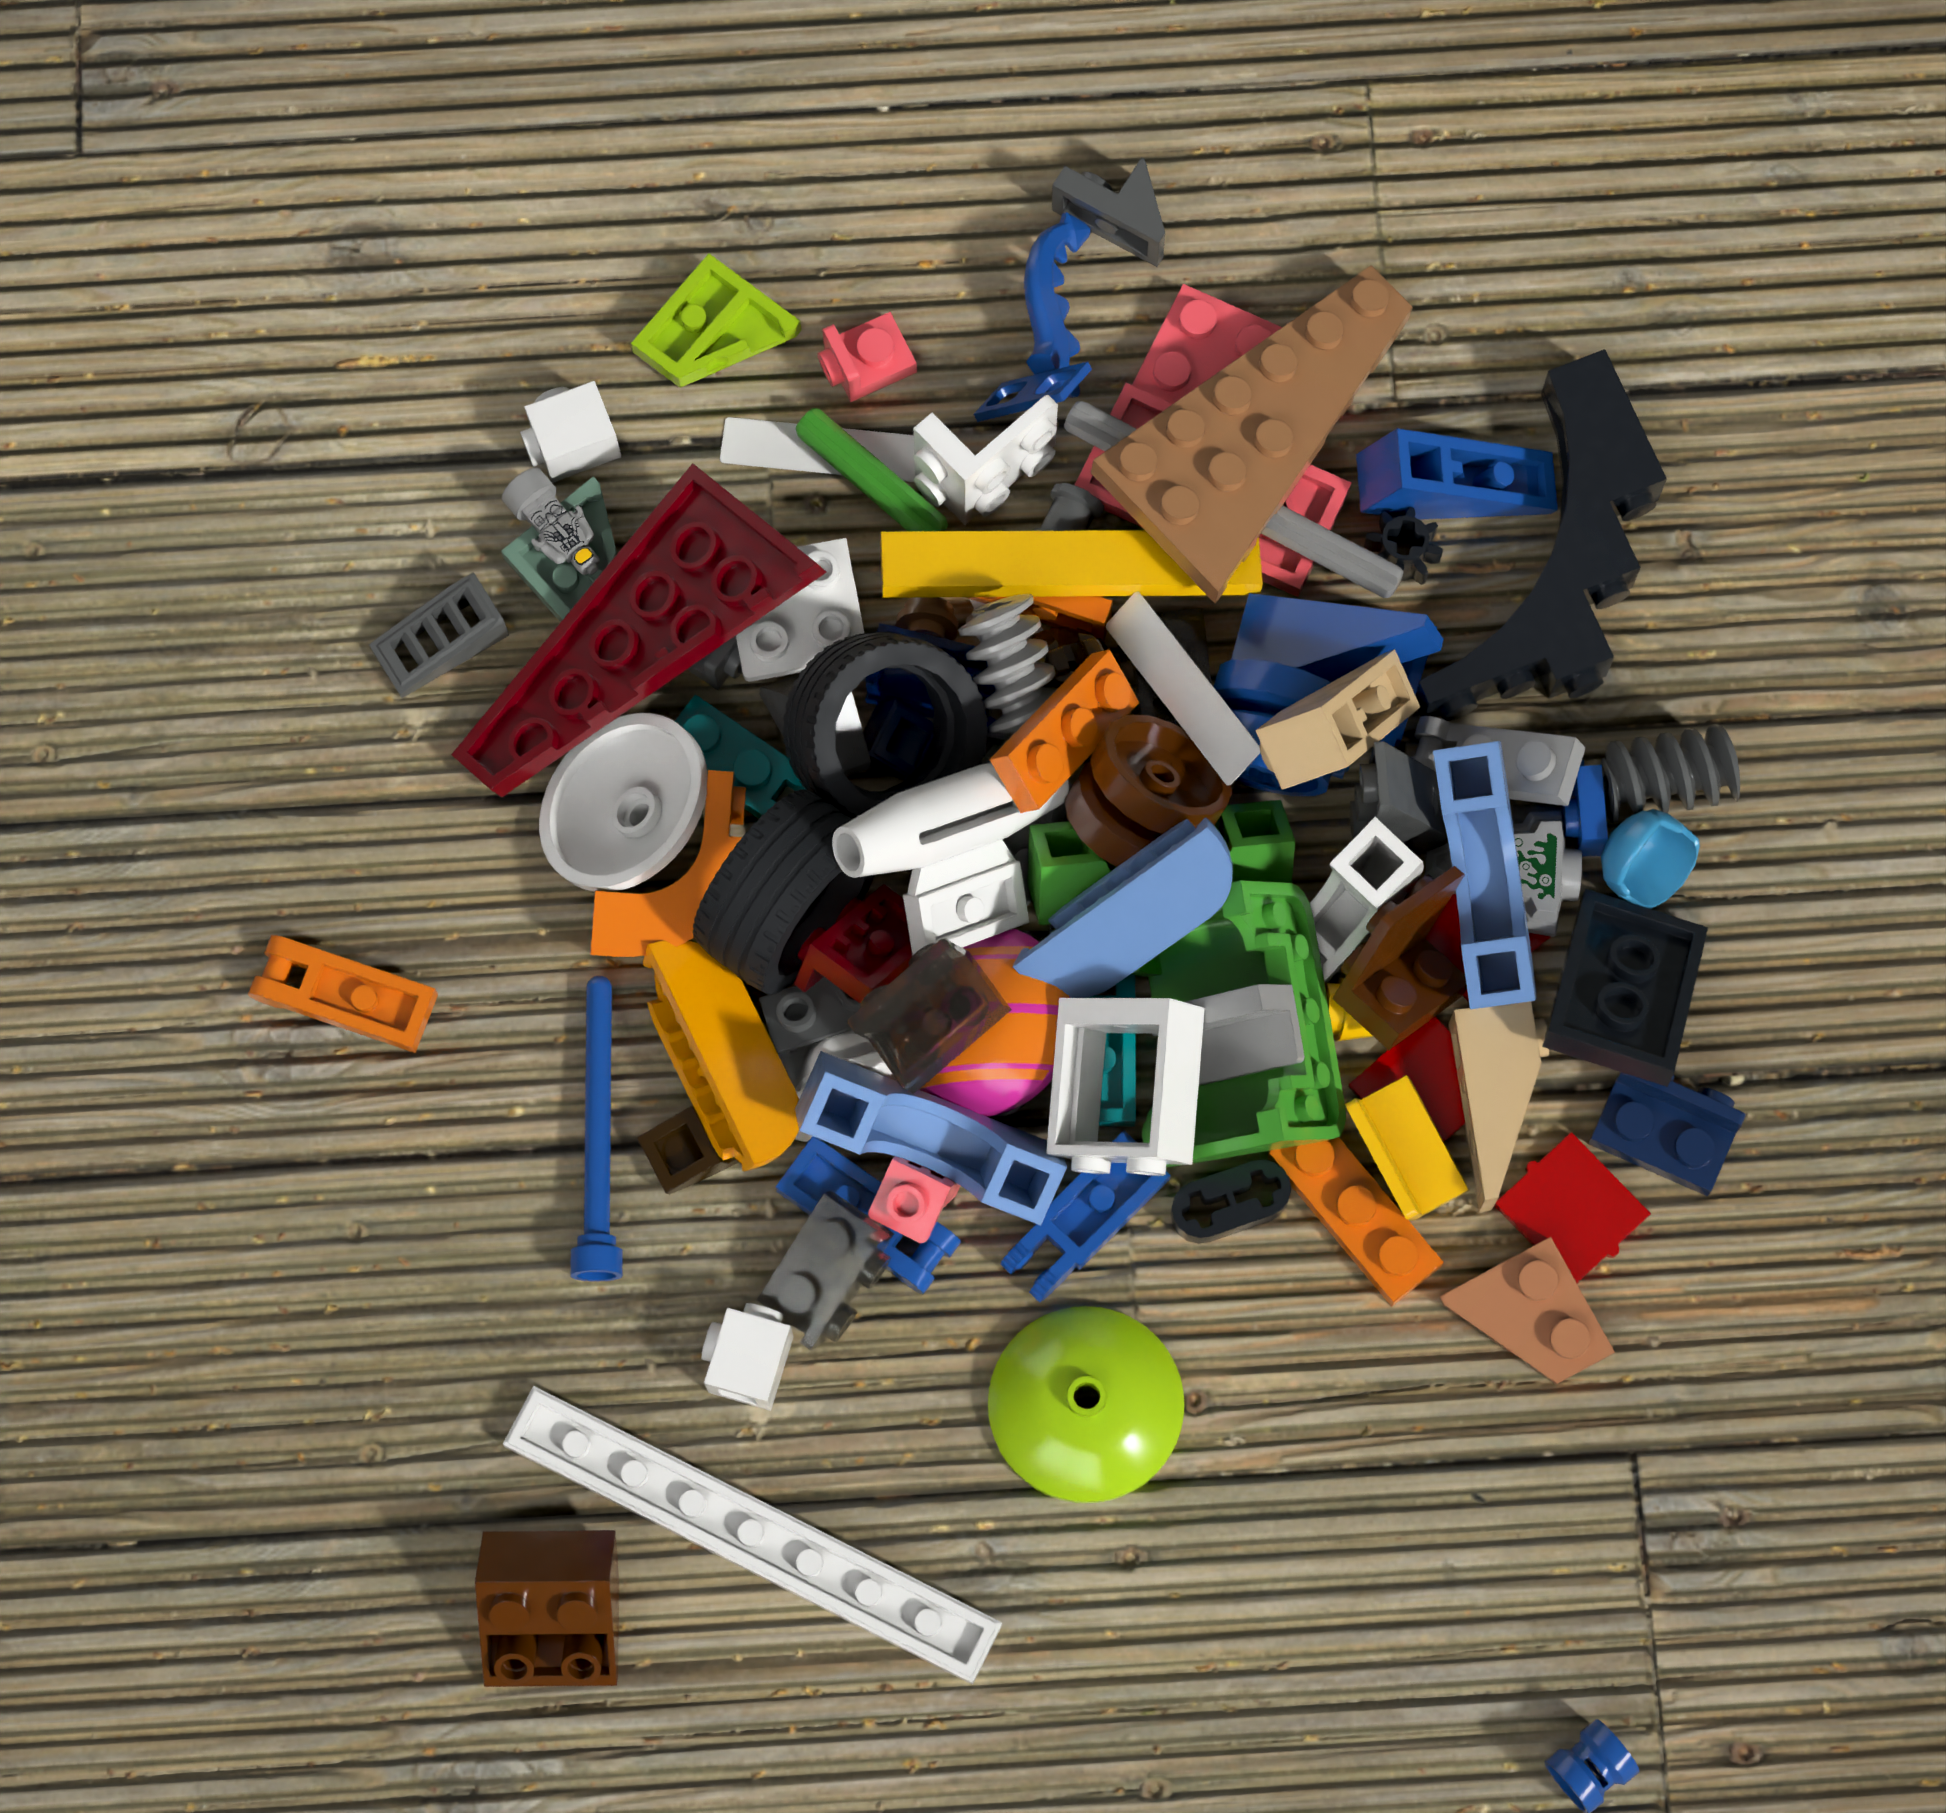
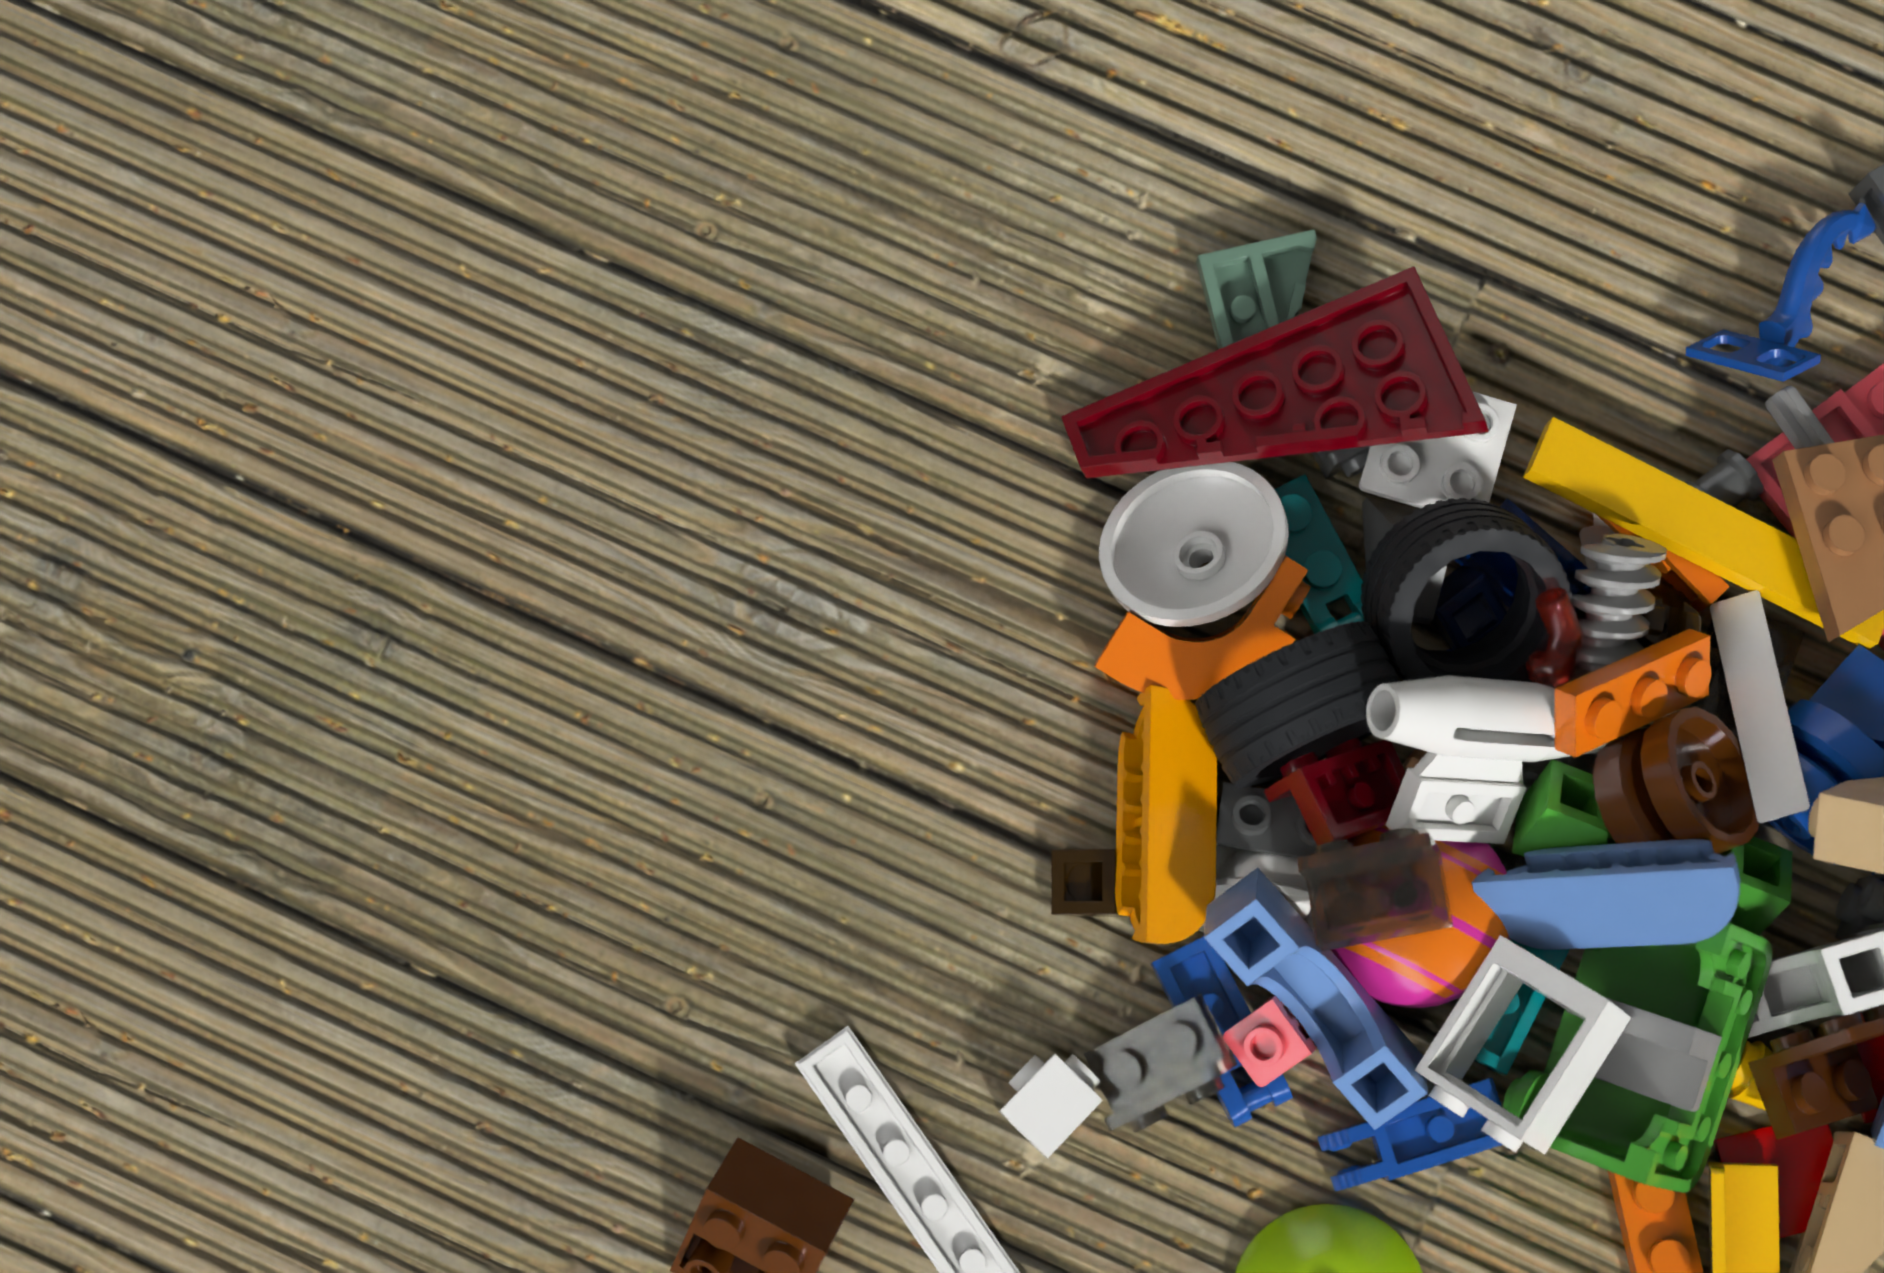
camera: 25 degrees right, 5 degrees up
(345, 993) = (860, 584): orange plate -> none
(426, 618) = (1123, 278): dark grey slope -> none
(561, 533) = (1260, 268): light grey piece -> none
(569, 431) = (1314, 177): white brick -> none
(596, 1251) = (964, 932): blue piece -> none
(712, 325) = (1489, 145): lime wing -> none
(779, 447) = (1543, 317): white sticker -> none
(866, 356) = (1613, 243): coral bracket -> none
(868, 473) = (1562, 353): bright green axle -> none
(929, 616) = (1551, 513): medium nougat plate -> none
(980, 482) = (1647, 402): white bracket -> none
(983, 716) = (1564, 640): none -> clear red arm
(1235, 1216) = (1555, 1175): black beam -> none

